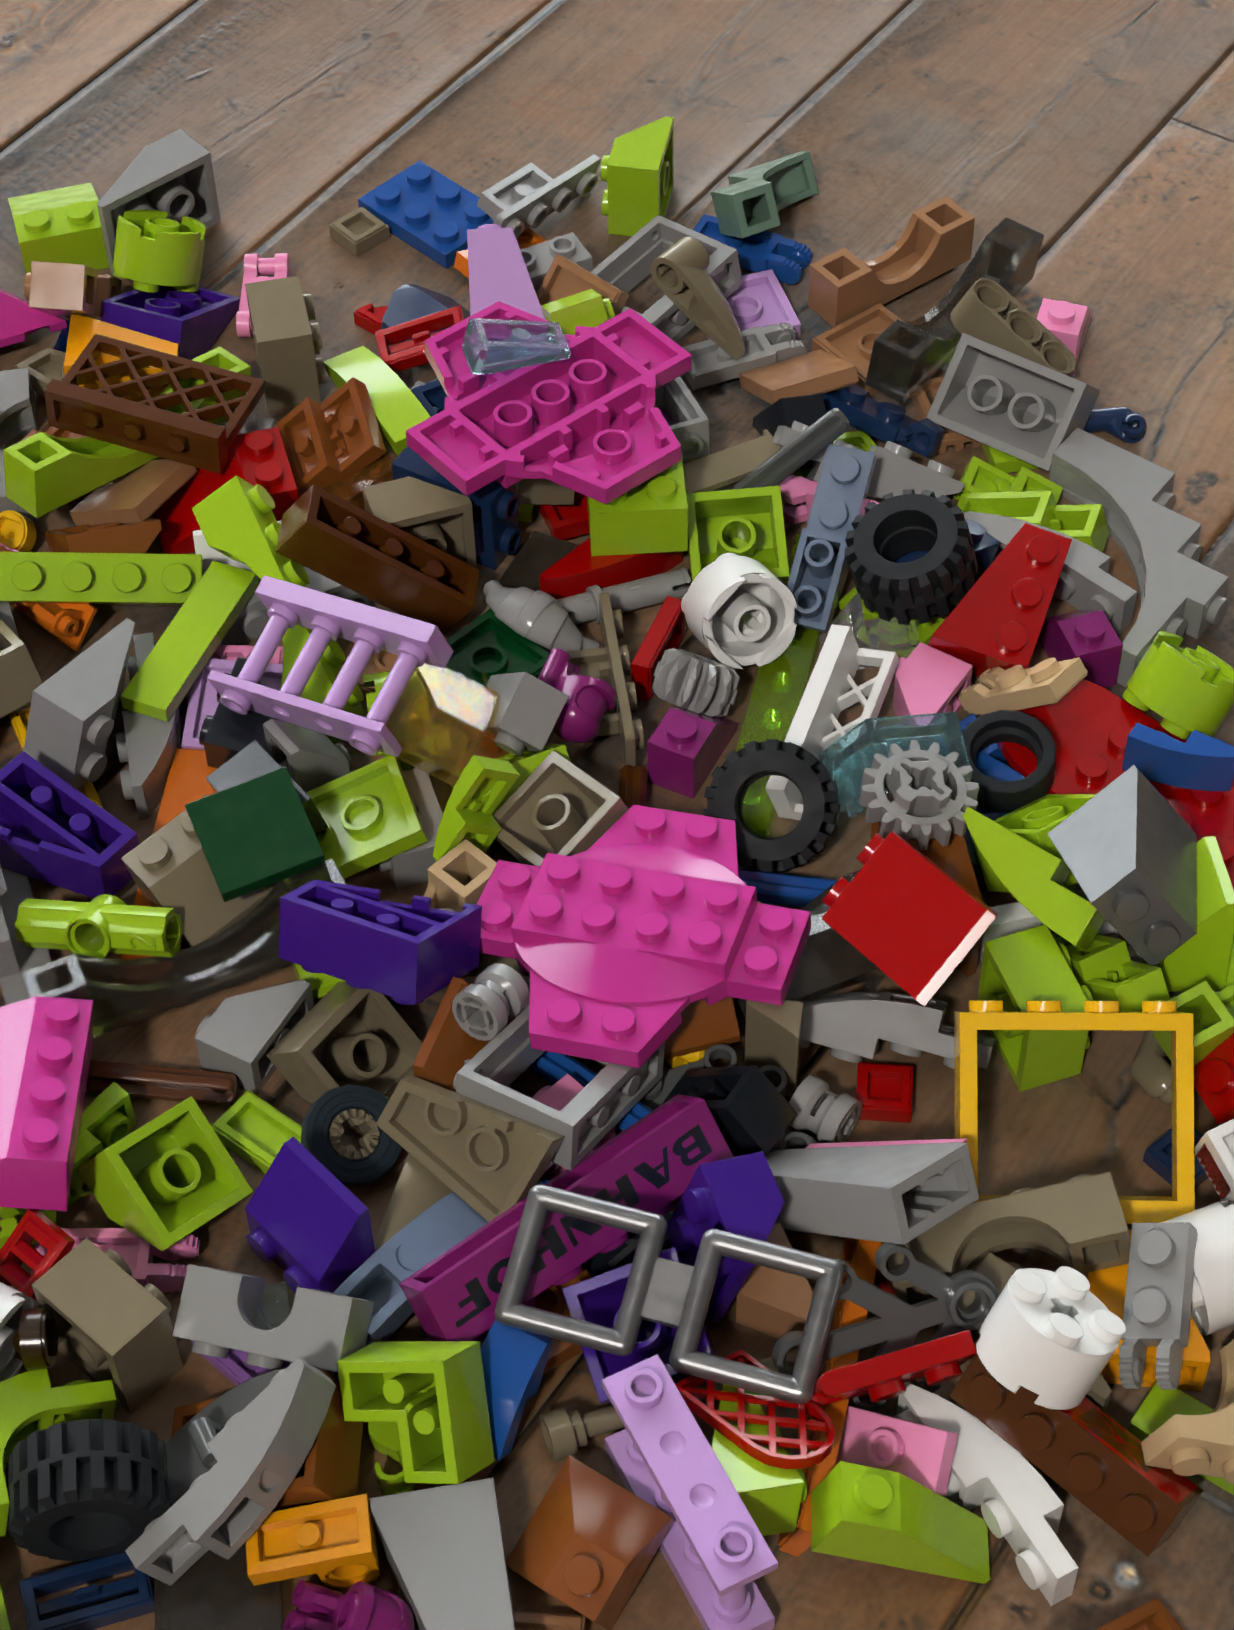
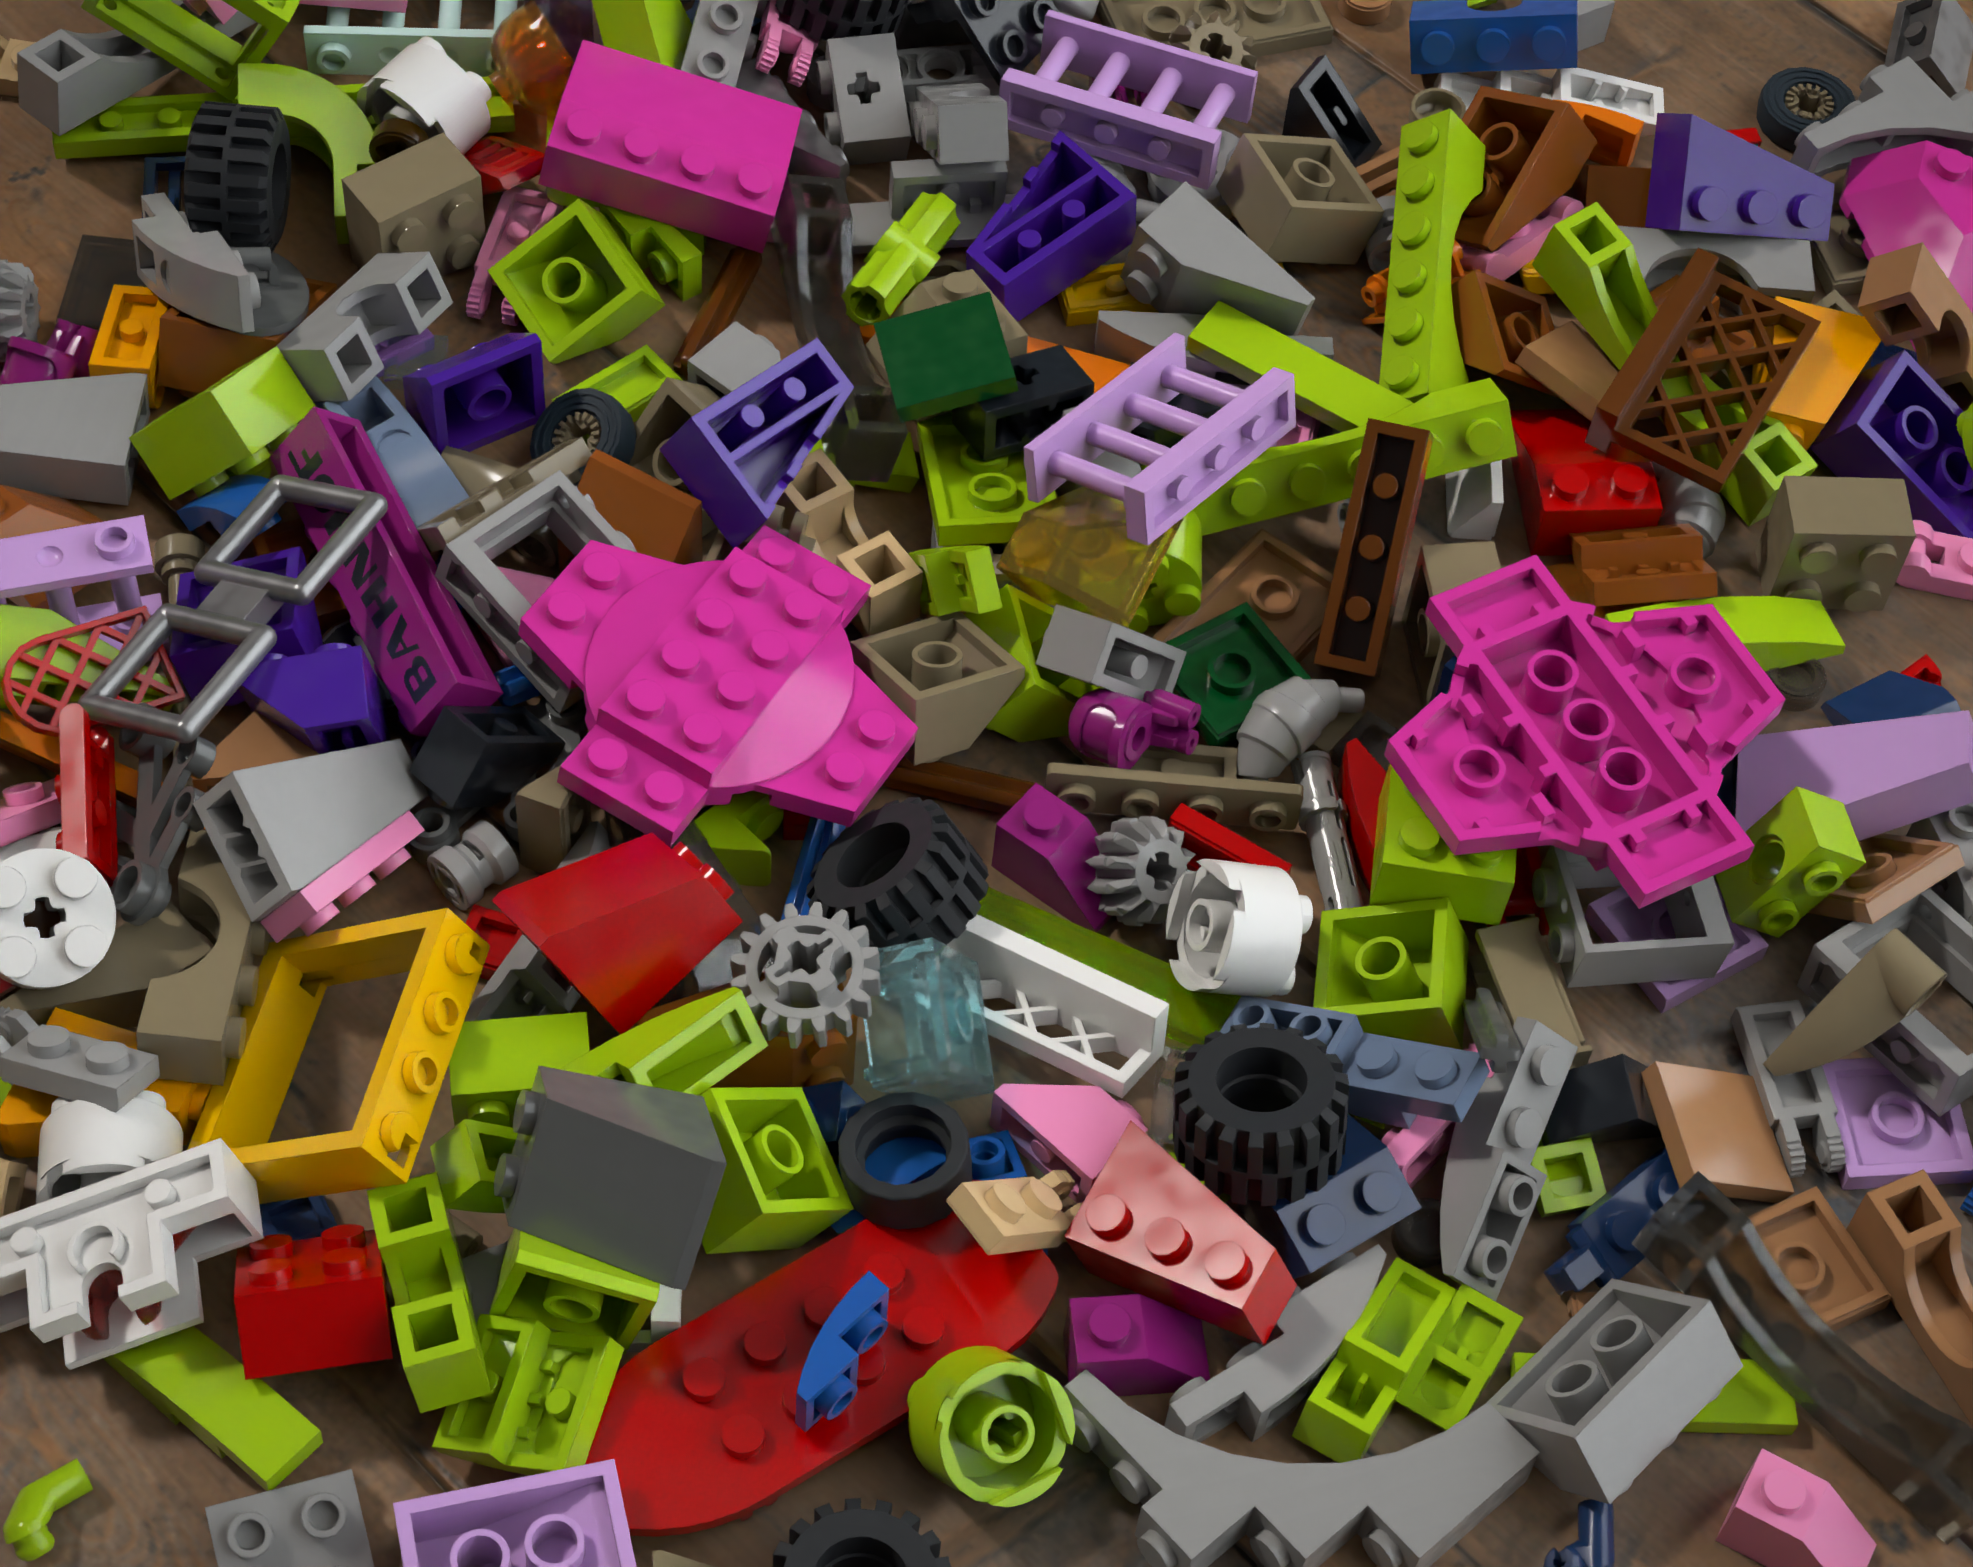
camera: 95 degrees right, 5 degrees up
(412, 352) = (1805, 692): red tile -> none
(489, 1003) = (654, 523): light grey wheel -> none
(512, 344) = (1678, 687): clear light blue slope -> none
(1001, 320) = (1778, 1407): dark tan beam -> none

